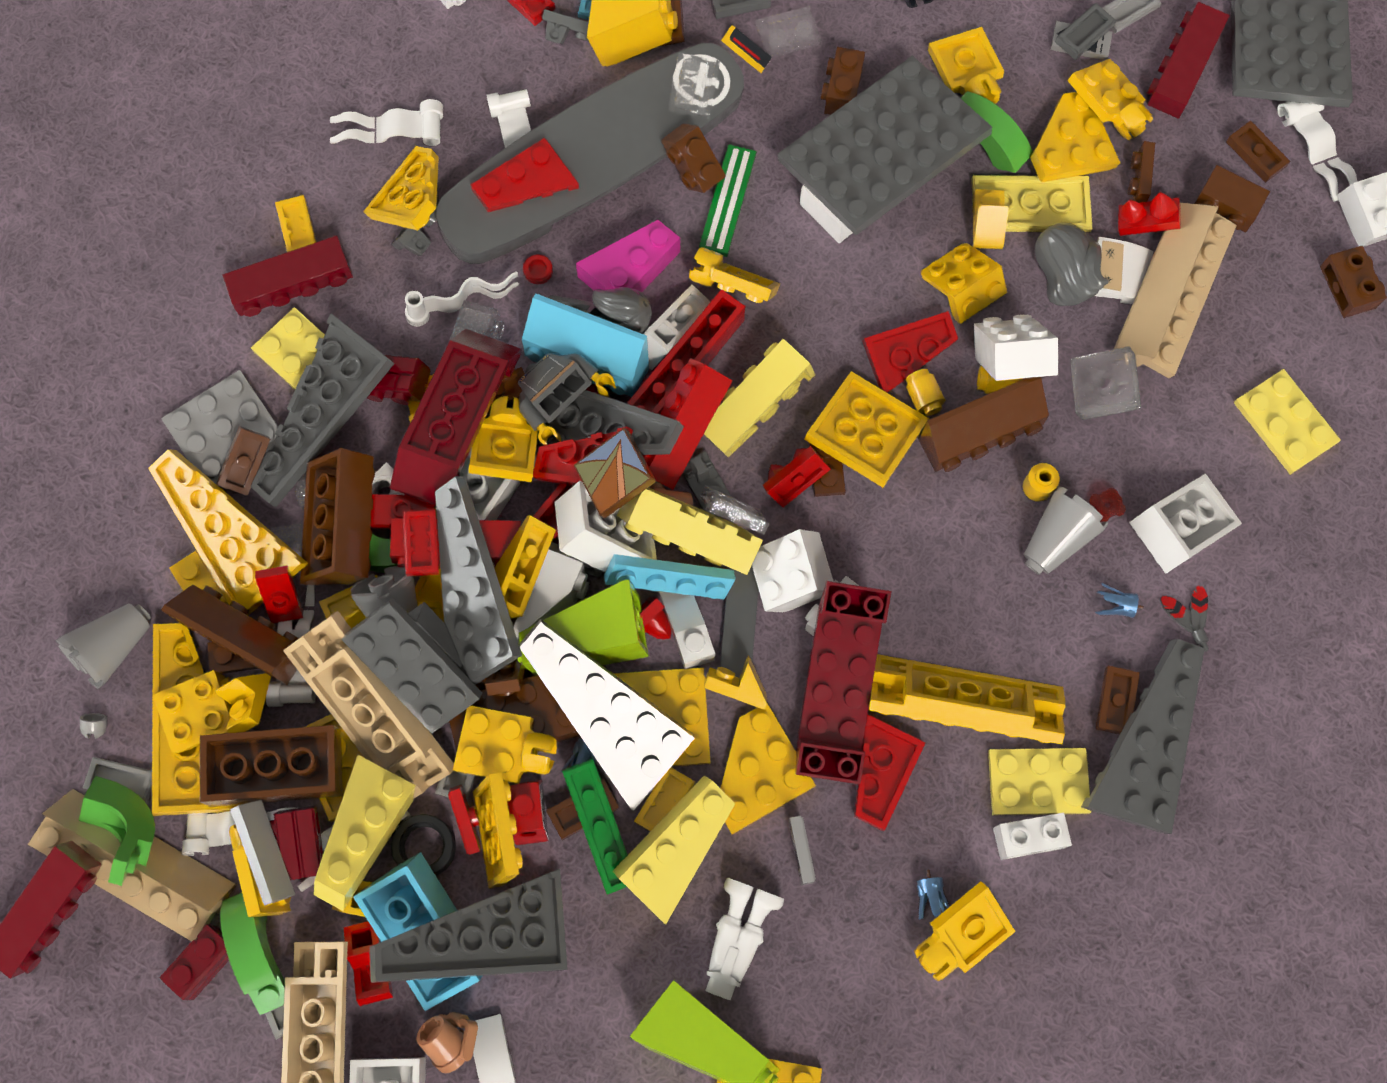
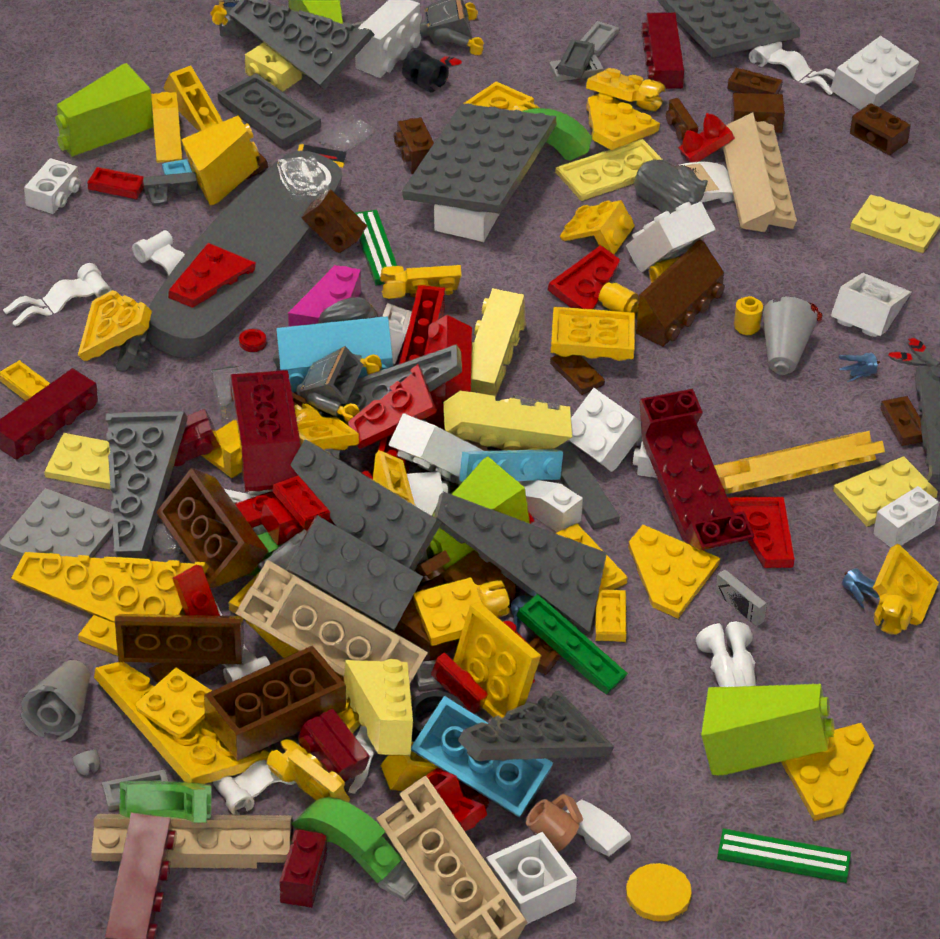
camera: 30 degrees left, 30 degrees down
(243, 460) = (97, 531): reddish brown plate -> none
(247, 700) = (214, 672): yellow slope -> none
(262, 852) = (313, 747): light grey tile -> none
(418, 308) = (194, 382): white flag -> none
(614, 473) = (430, 392): tile -> none
(674, 849) = (643, 633): light yellow wedge -> none
(745, 688) = (620, 515): yellow slope -> none
(790, 481) = (561, 377): red tile -> none
(989, 219) = (590, 183): yellow slope -> none
(1090, 374) = (750, 241): clear brick -> none

